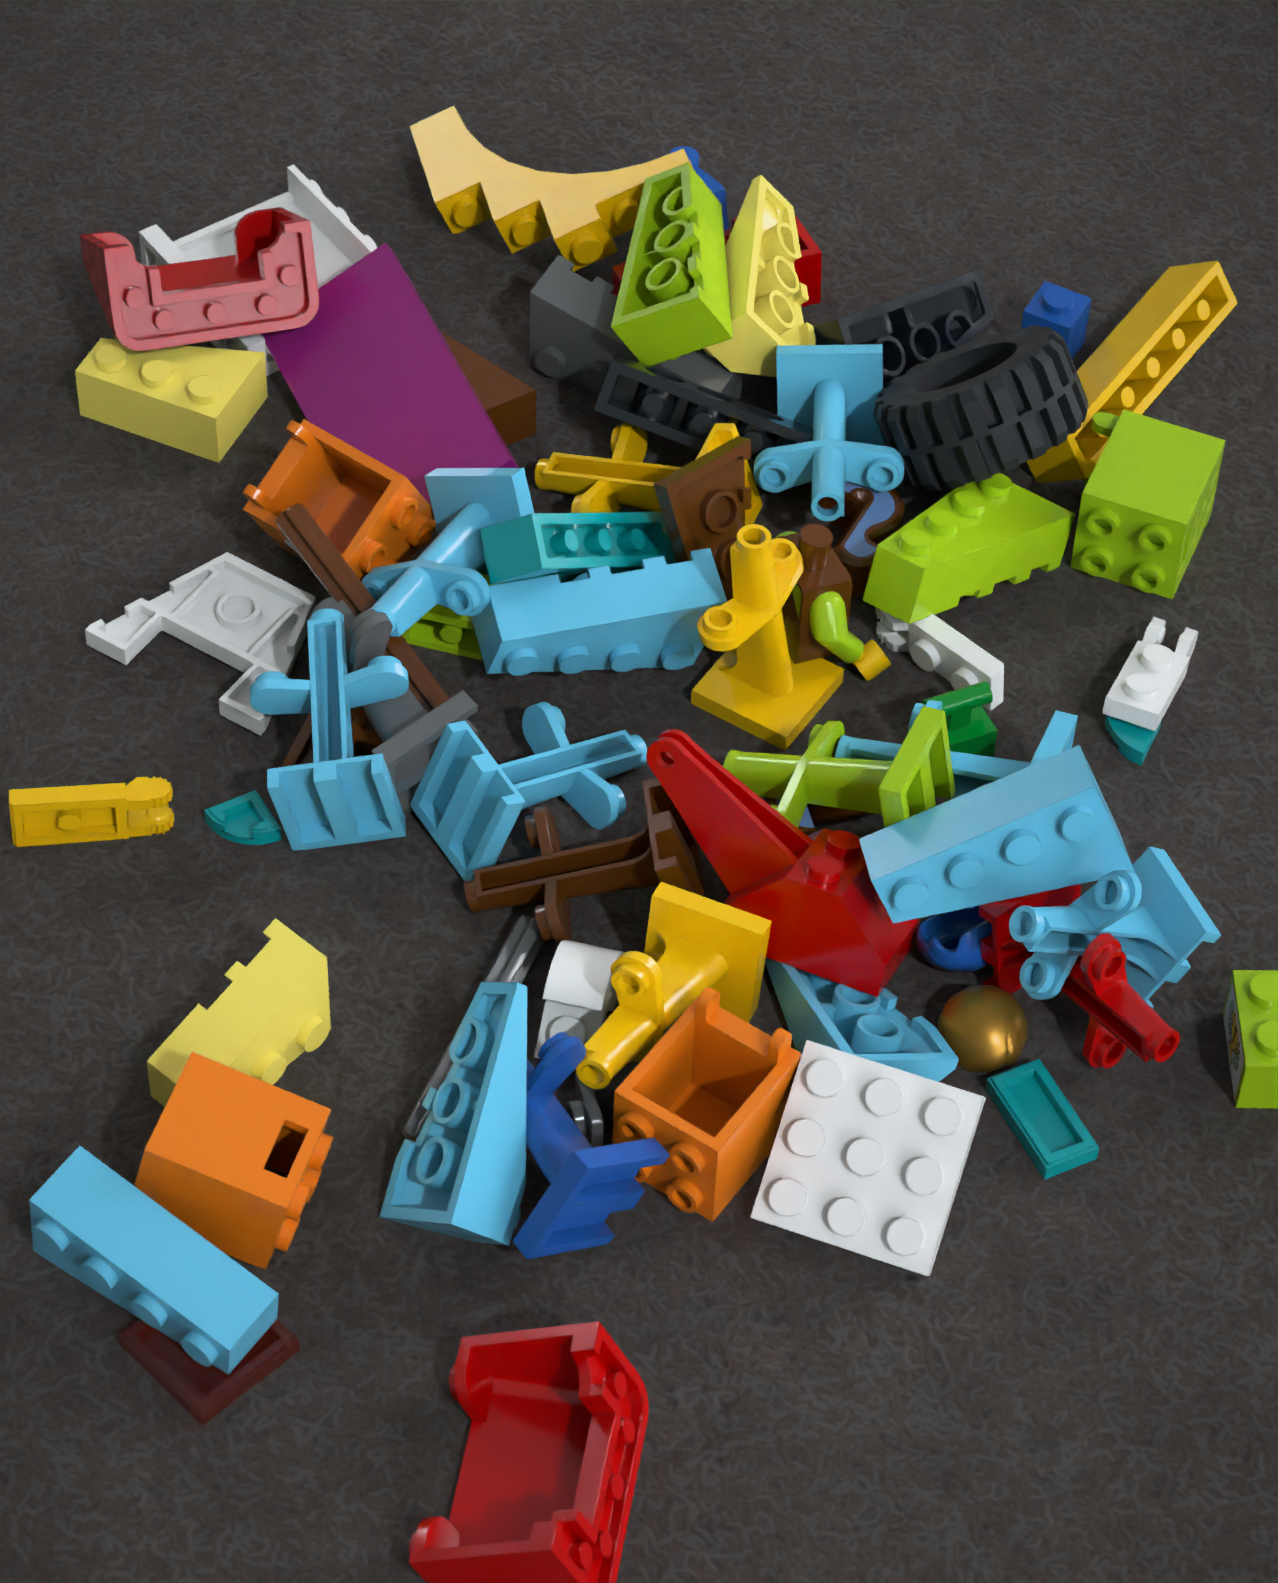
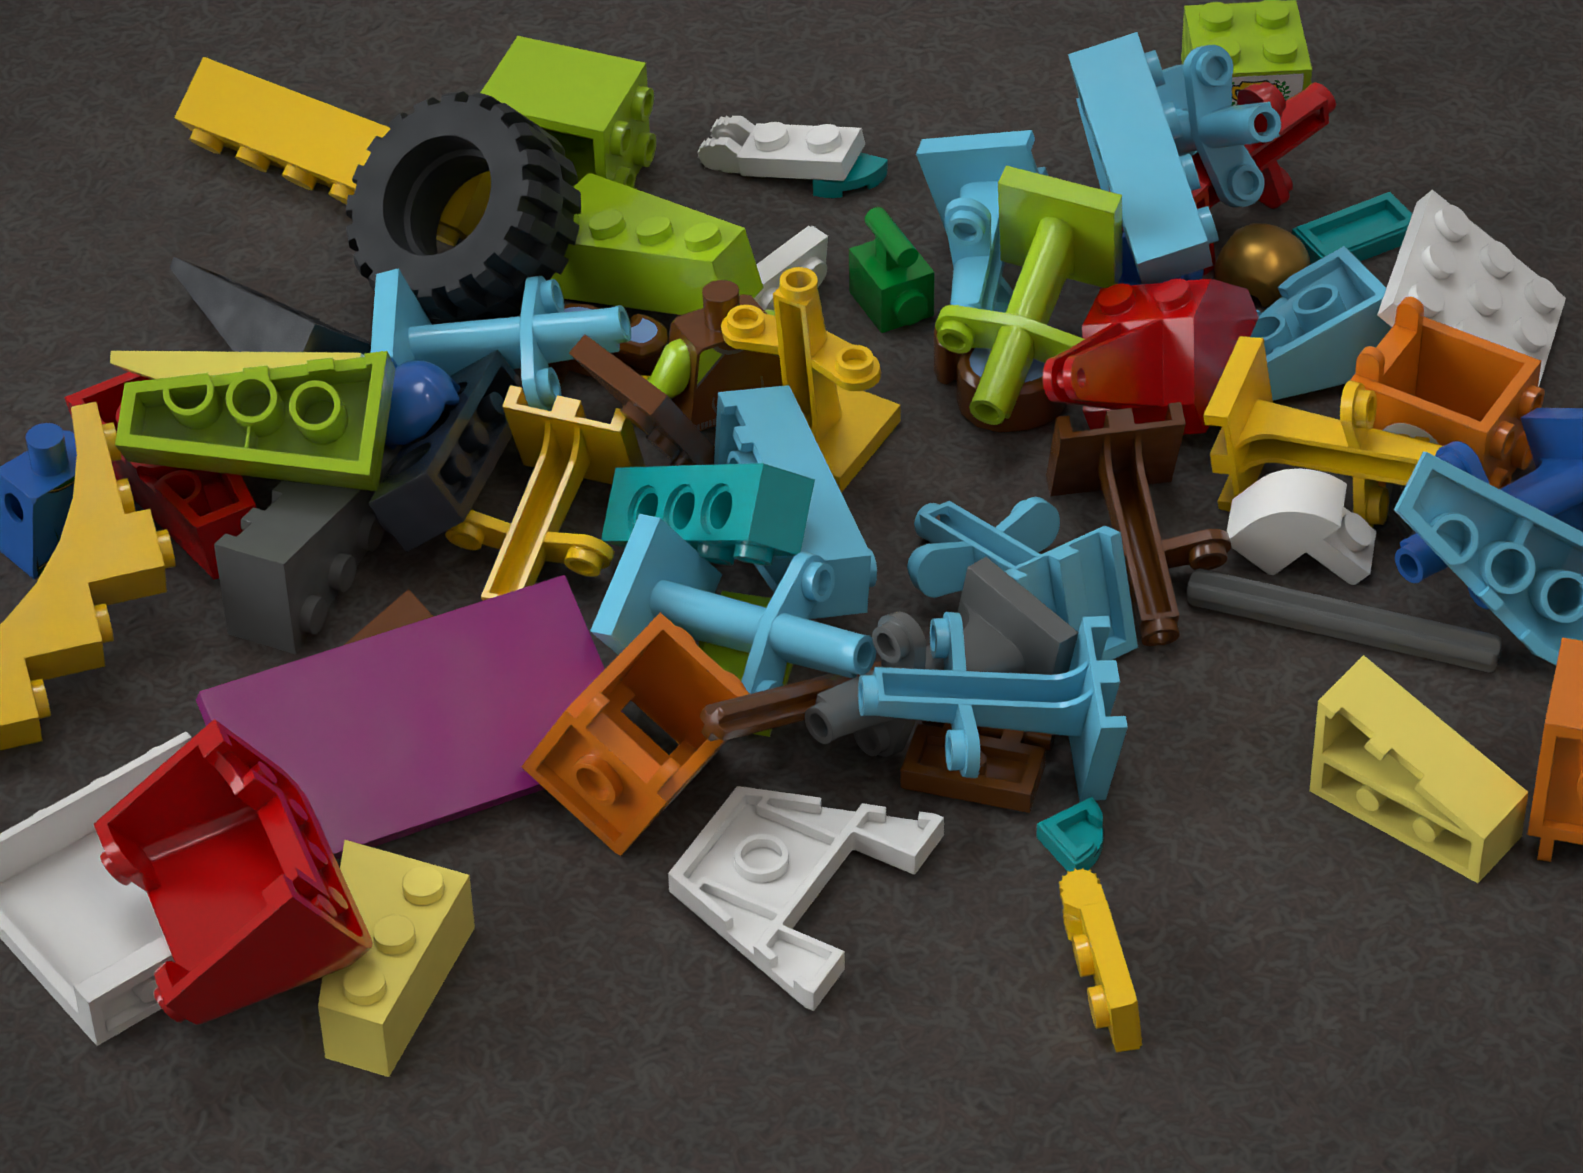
camera: 90 degrees left, 5 degrees down
(742, 375) = (418, 400): none -> blue hair
(1062, 311) = (266, 211): blue brick -> none

